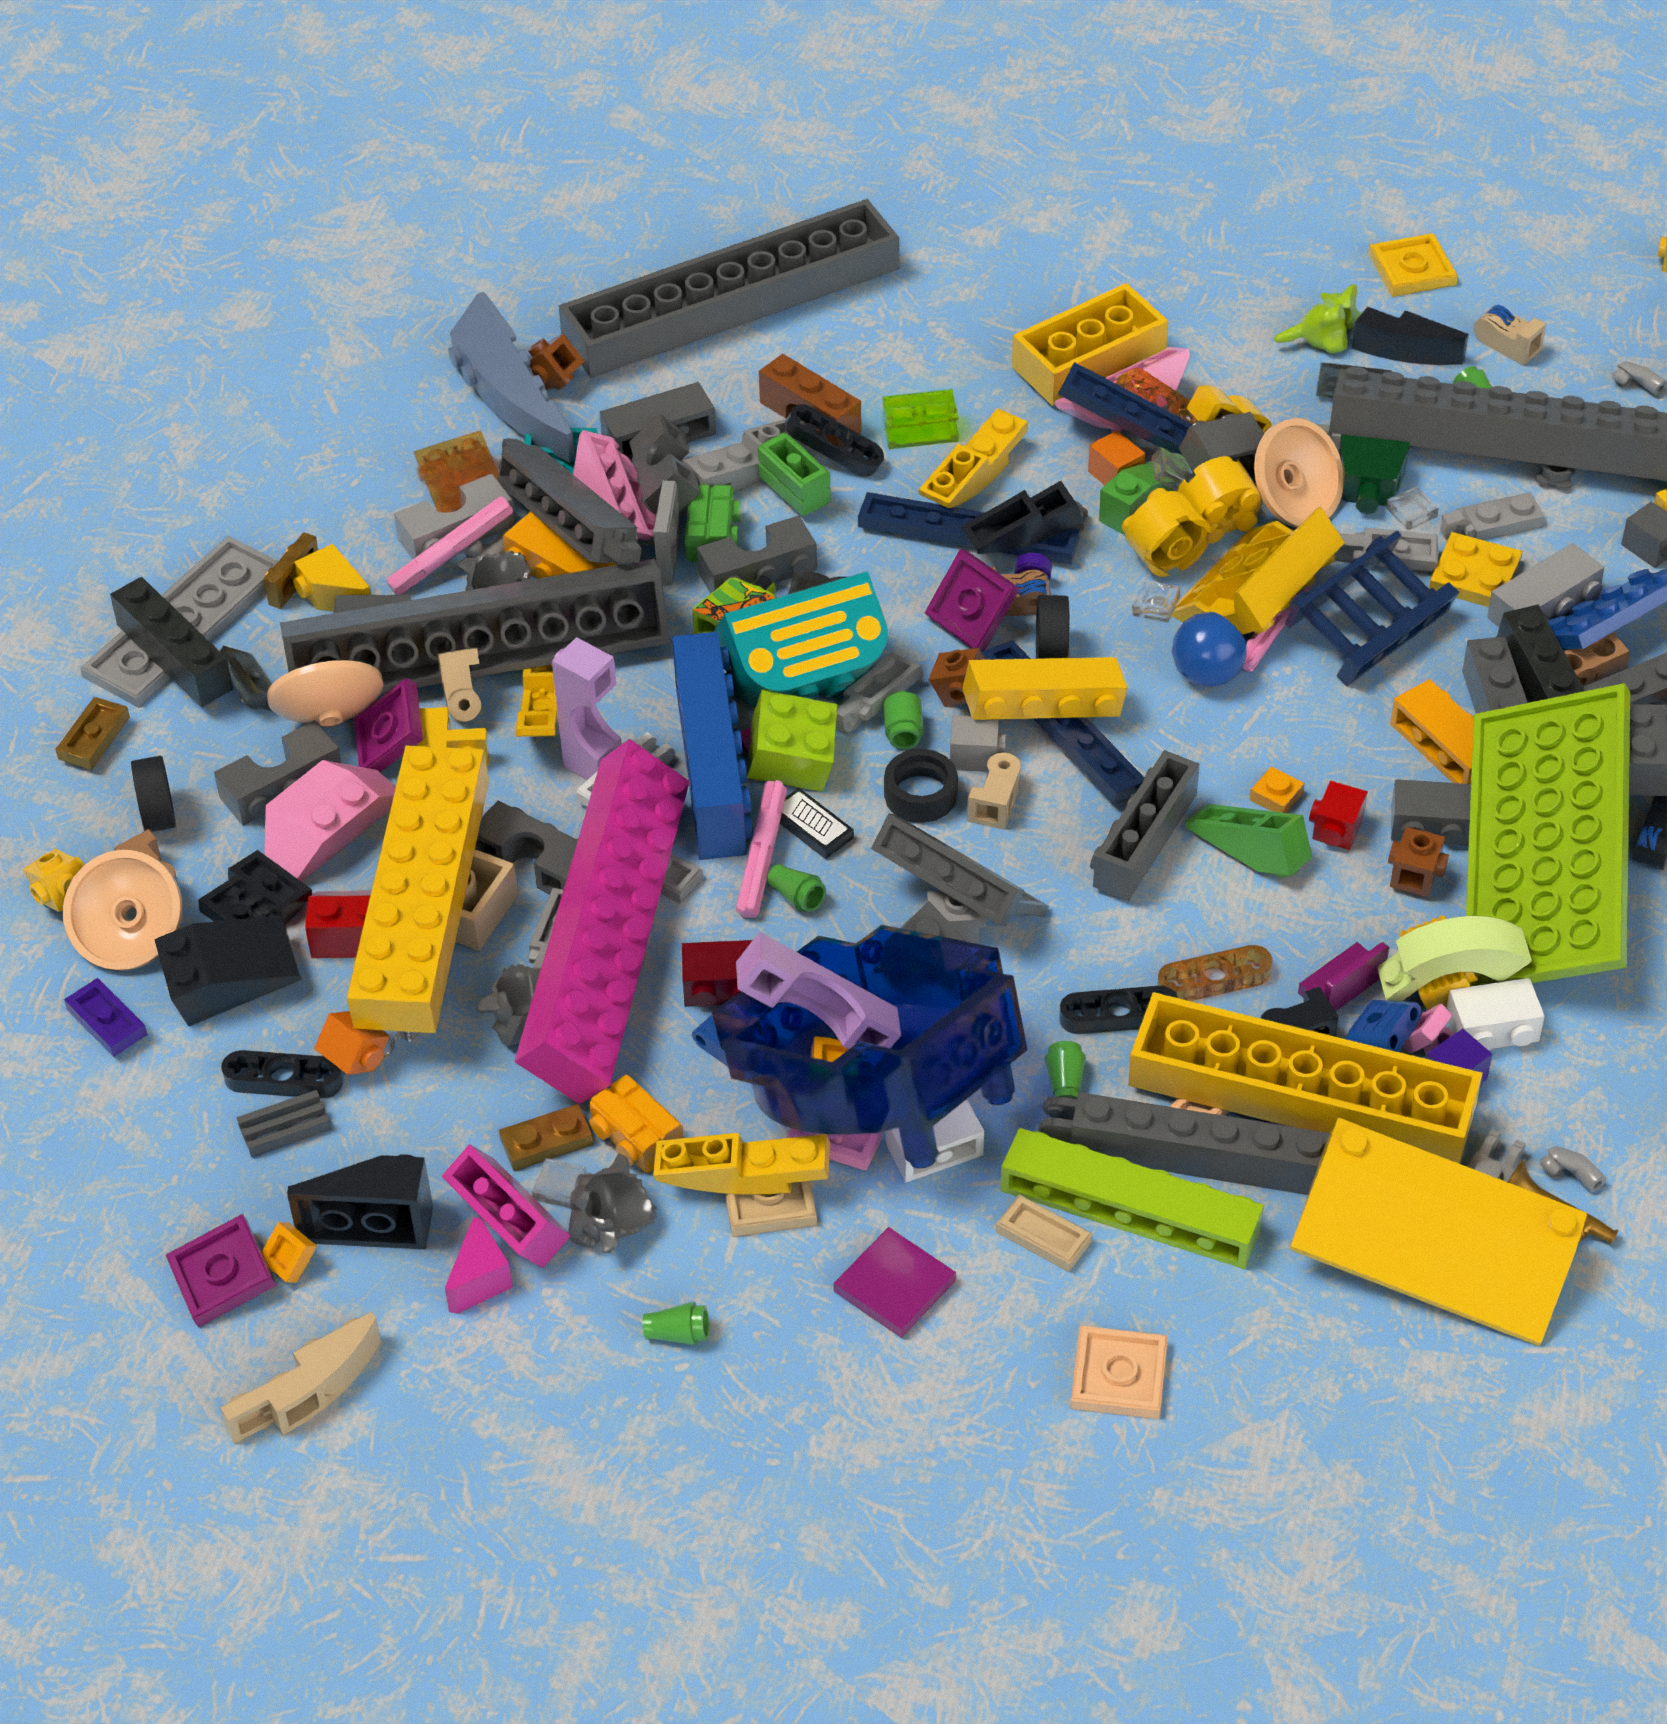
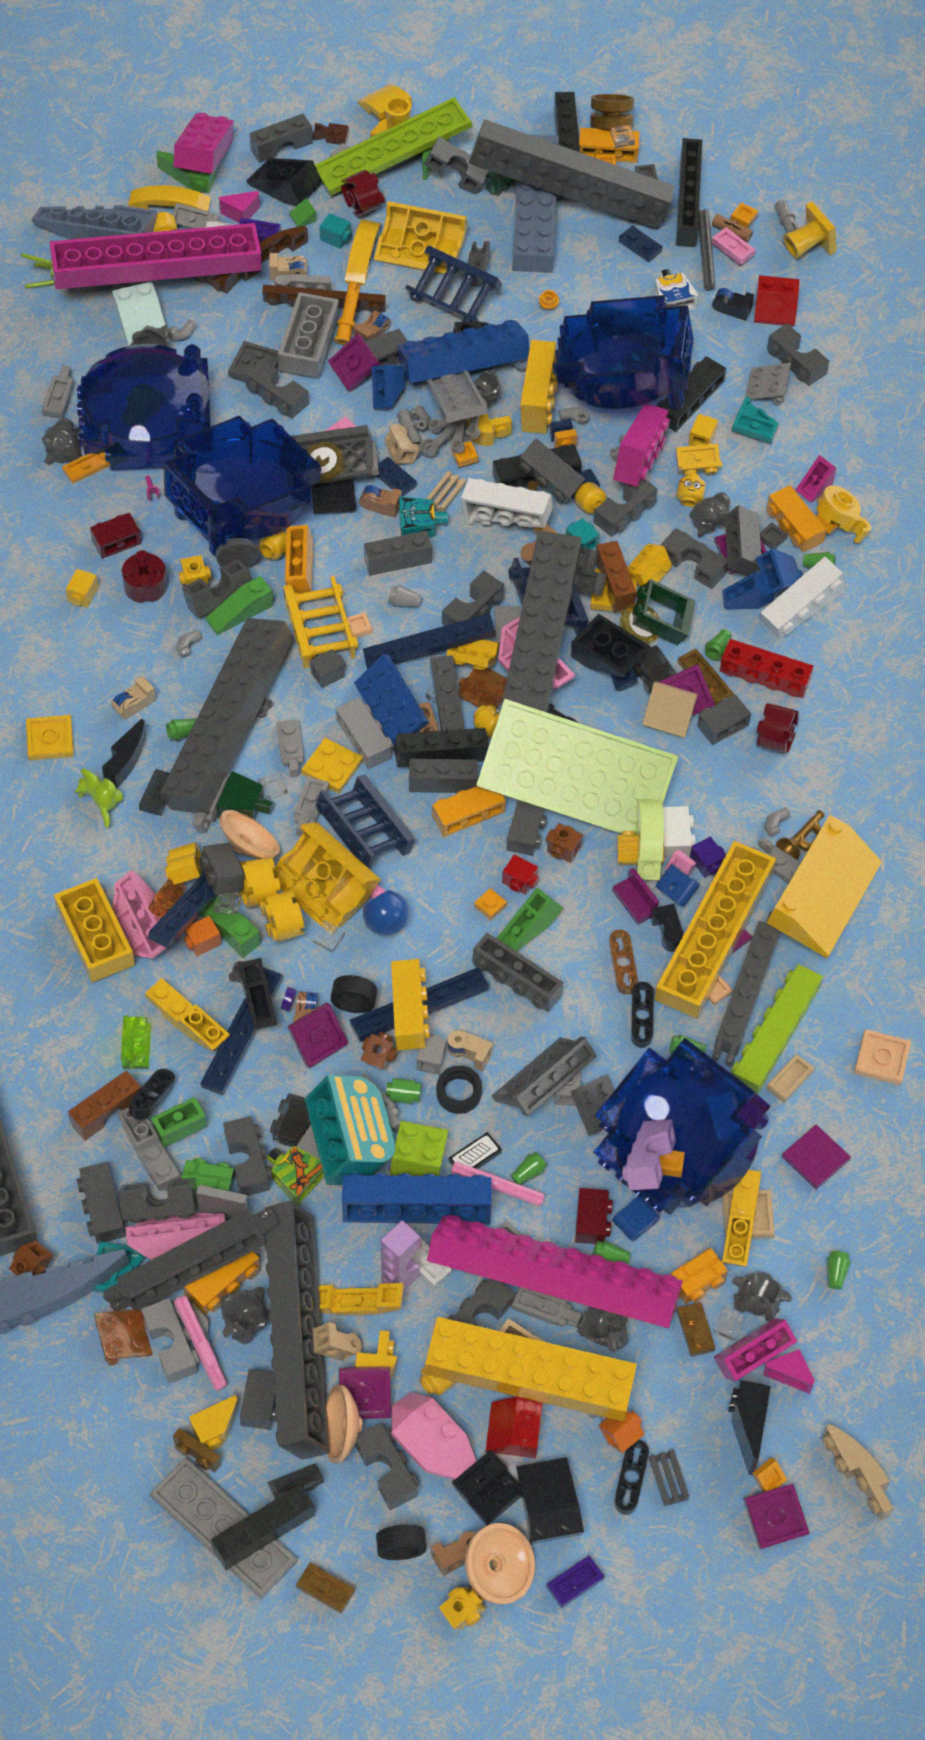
camera: 85 degrees left, 10 degrees up
(661, 1003) = (611, 1252): none -> bright green cone

